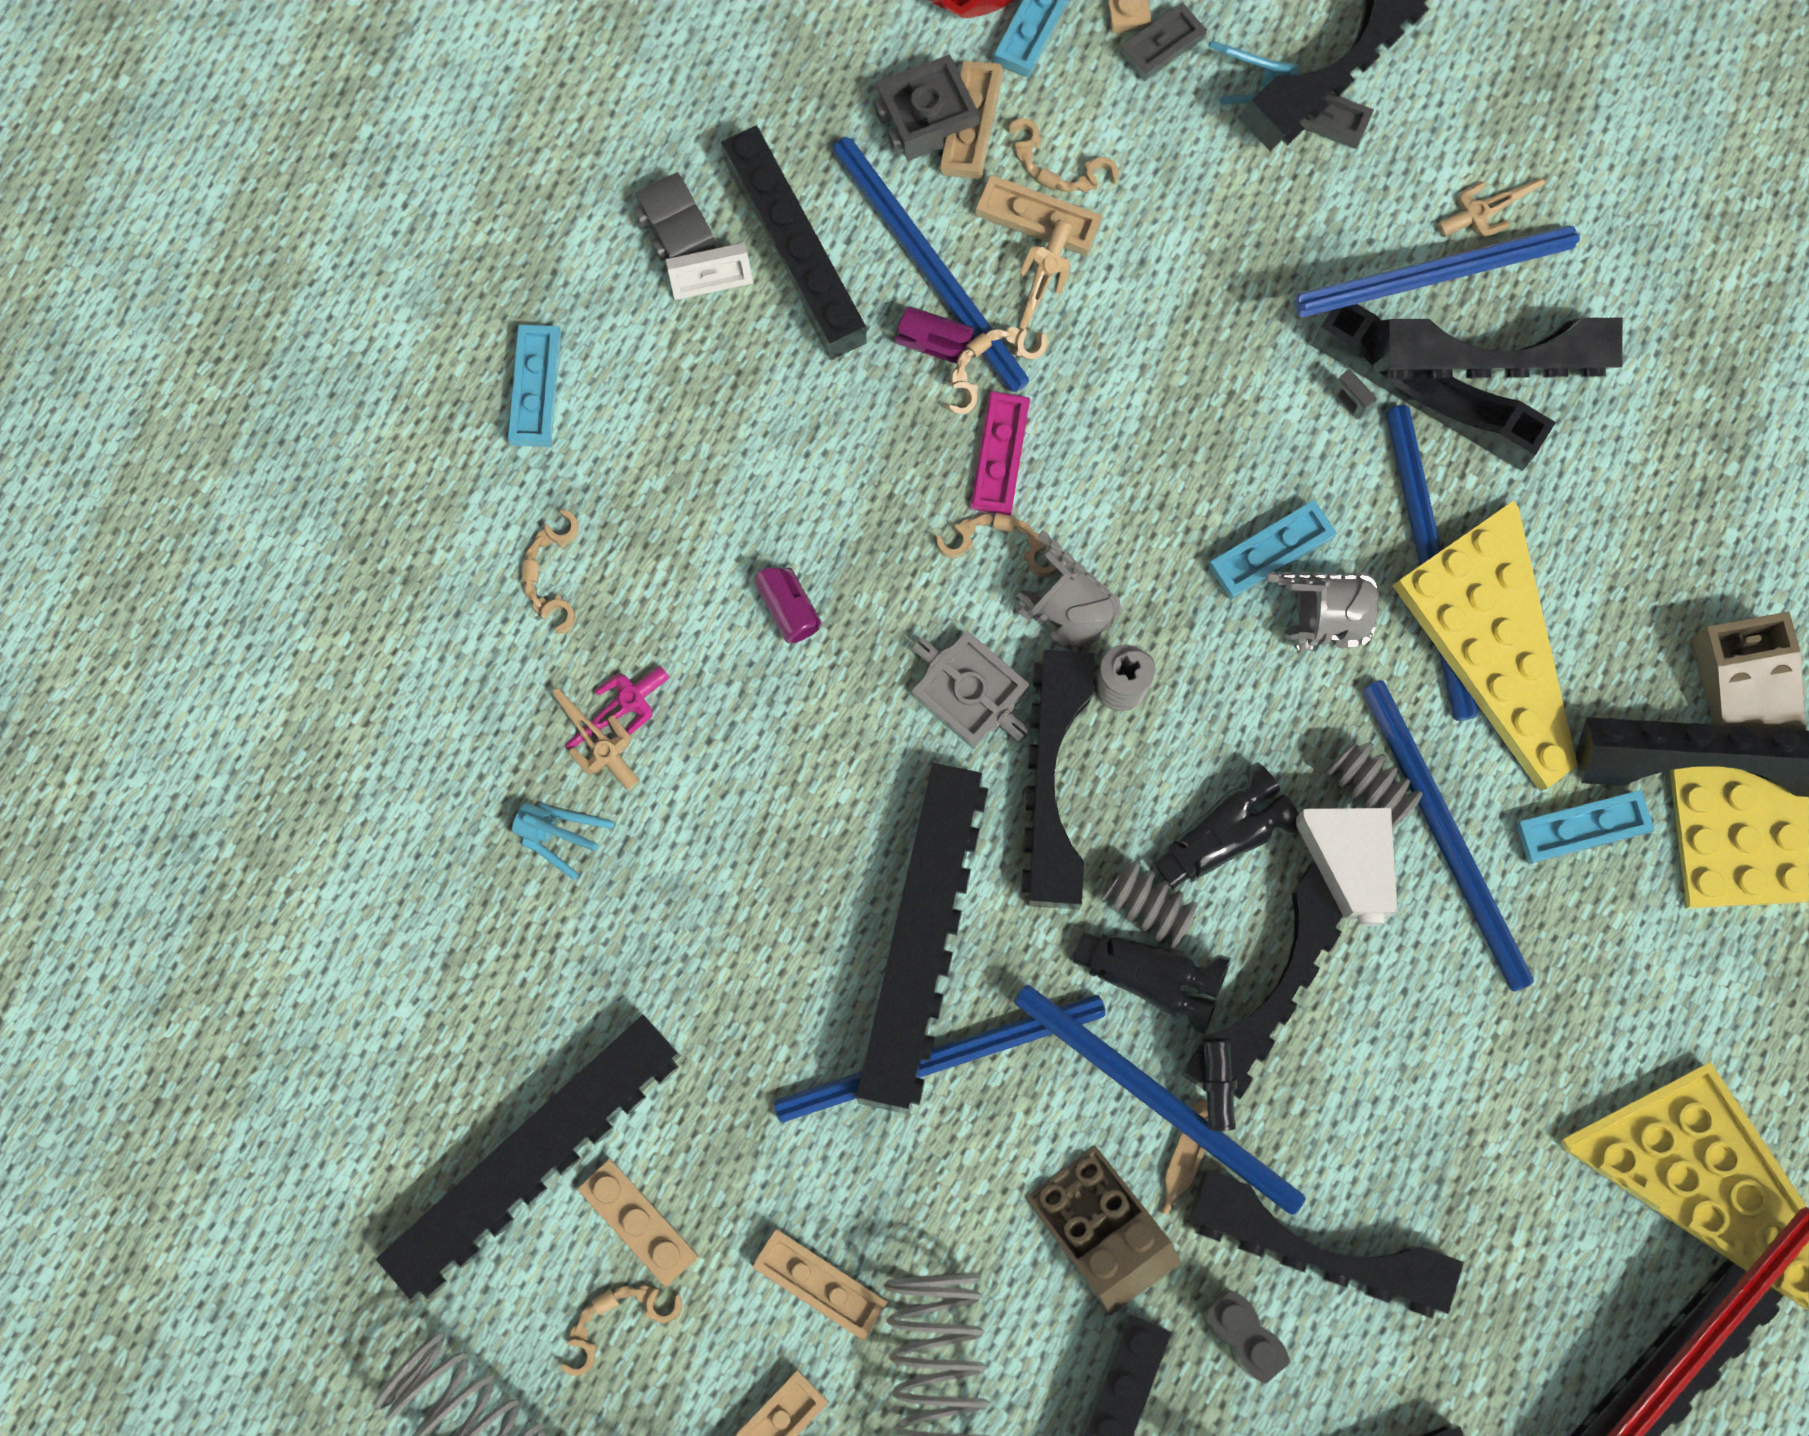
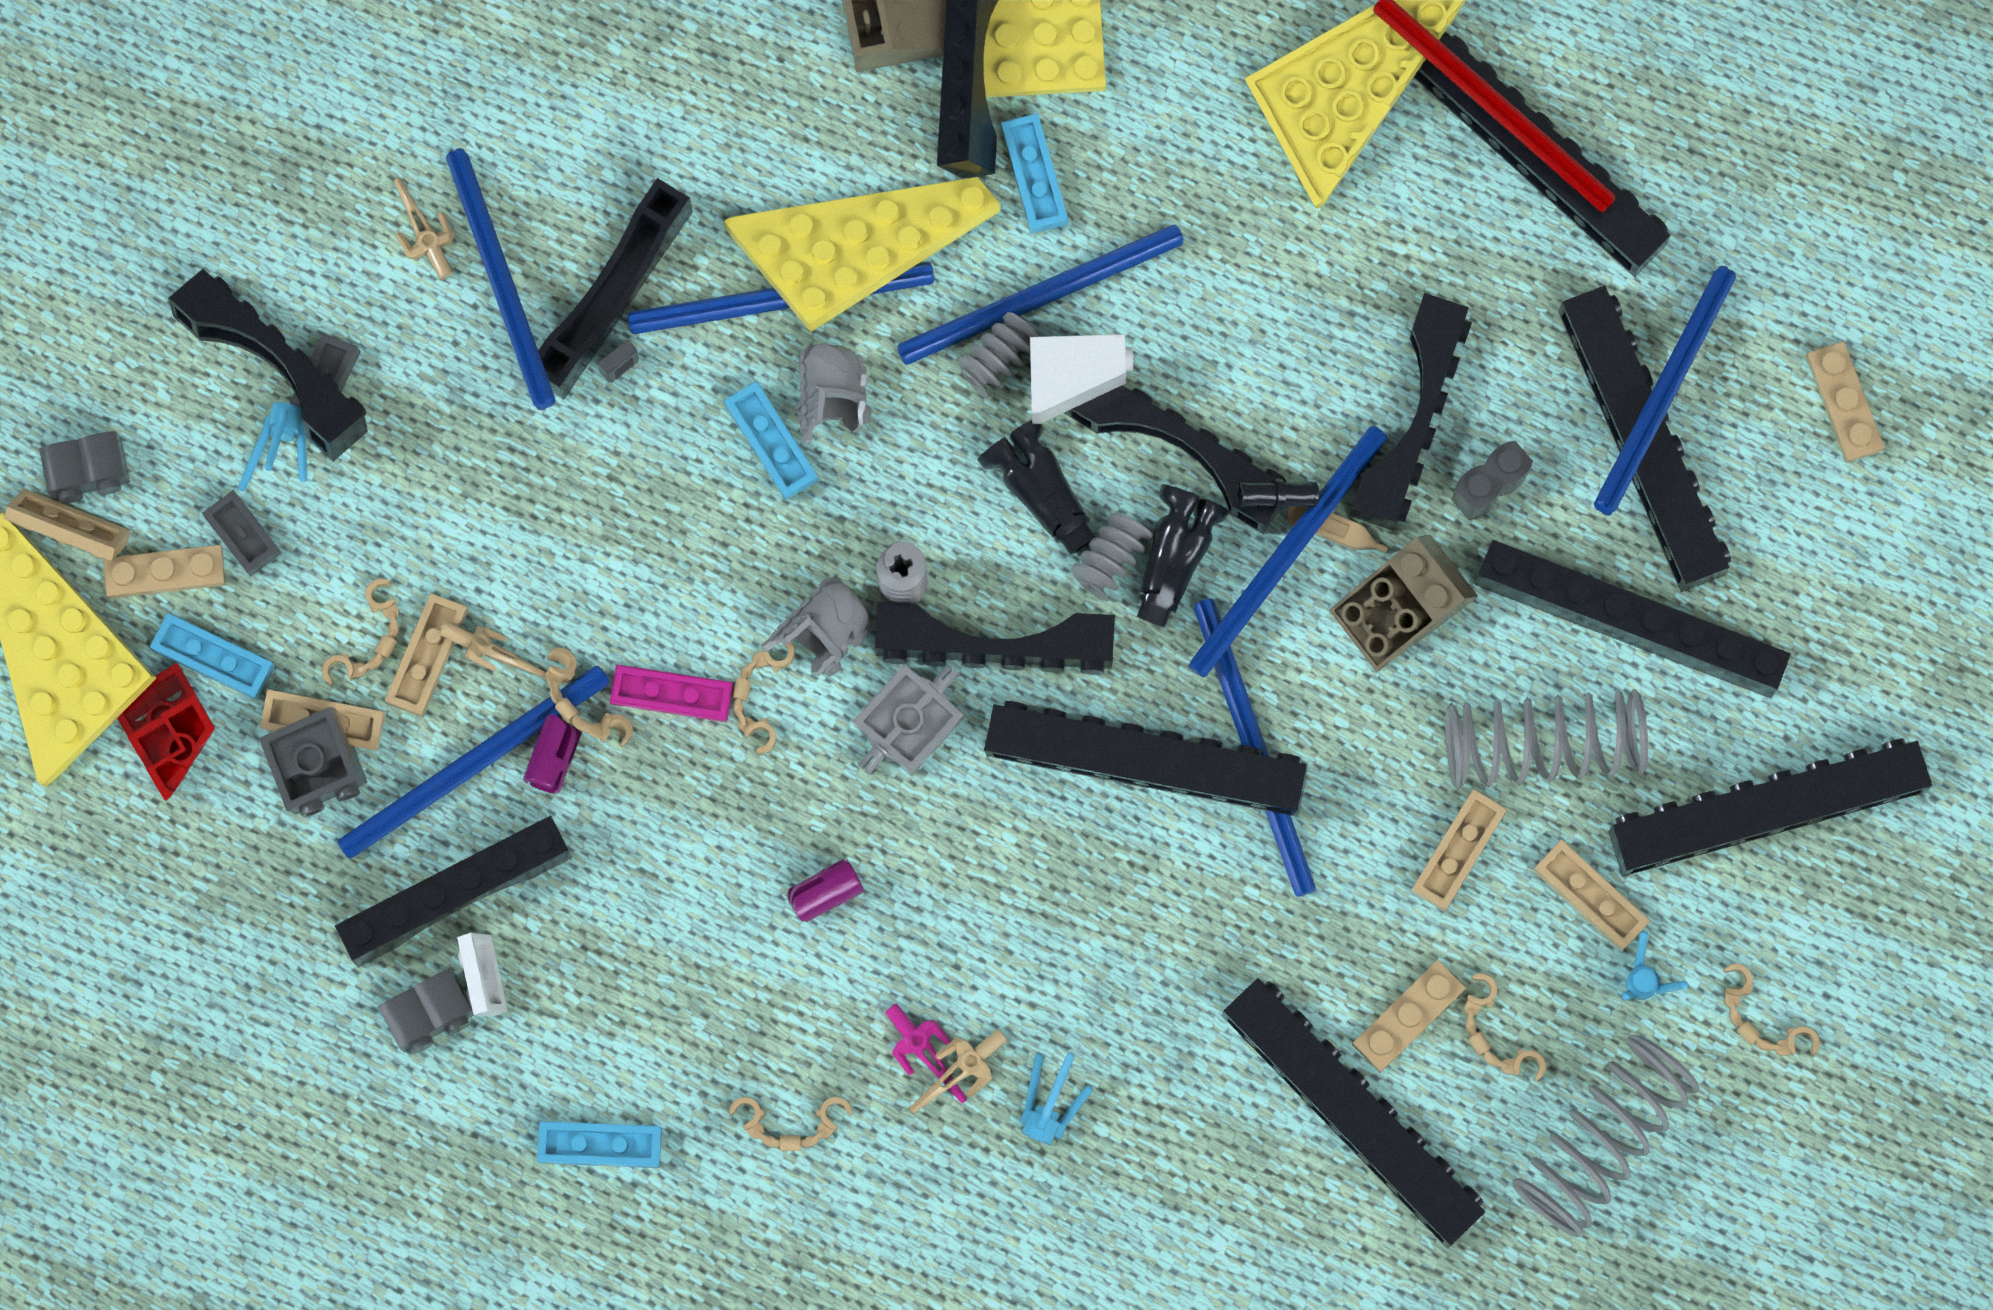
camera: 90 degrees left, 0 degrees up
(1422, 346) = (573, 156): black arch -> none

